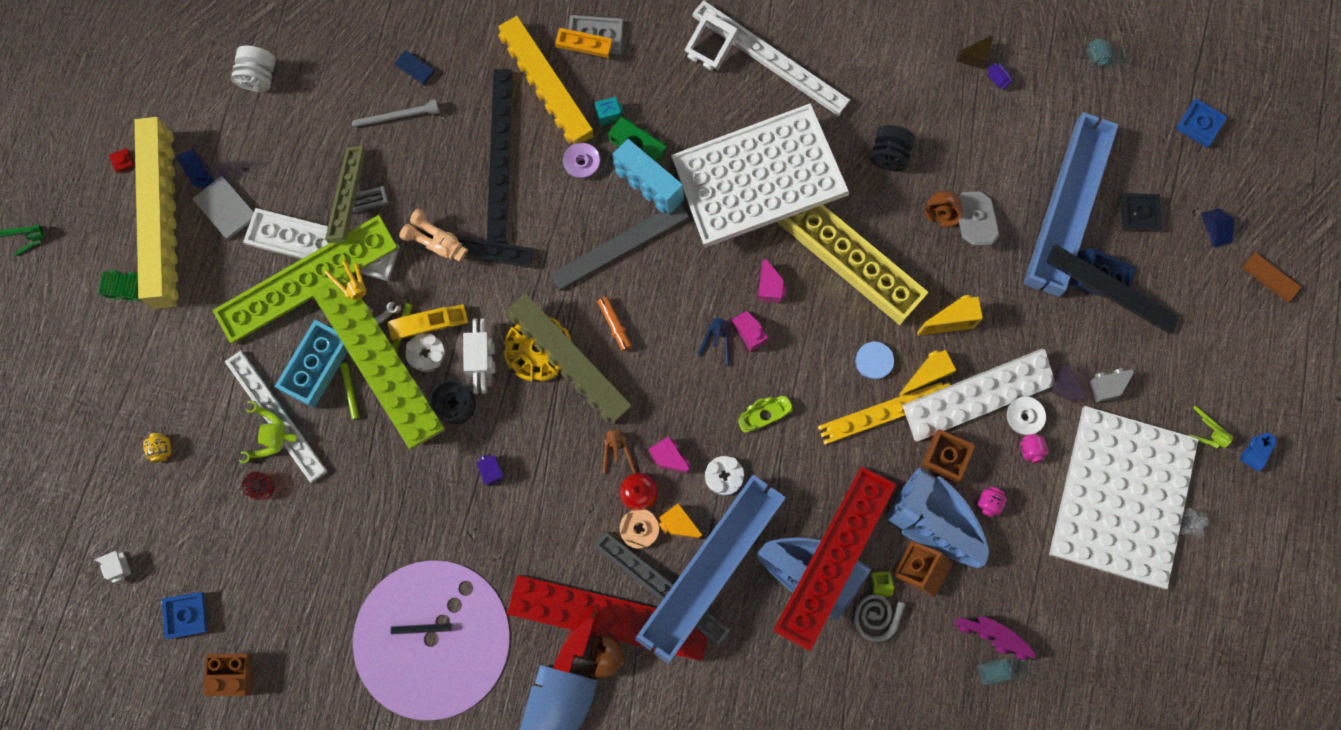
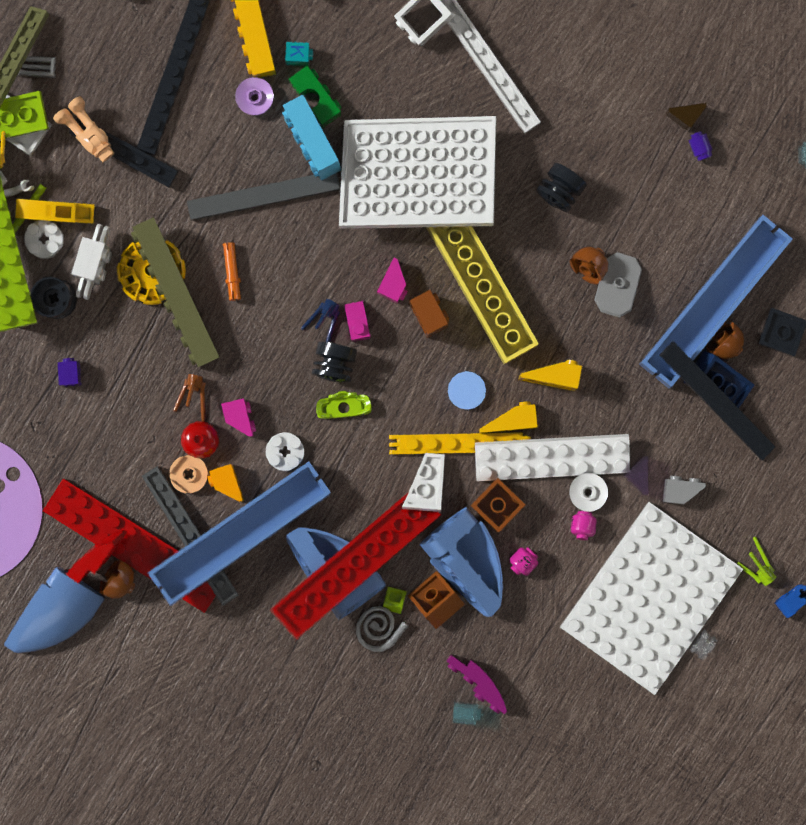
camera: 20 degrees right, 10 degrees up
(741, 372) = (334, 362): none -> black wheel
(815, 299) = (429, 313): none -> dark orange brick
(873, 460) = (427, 486): none -> white wing
(1097, 234) = (727, 341): none -> dark orange cylinder

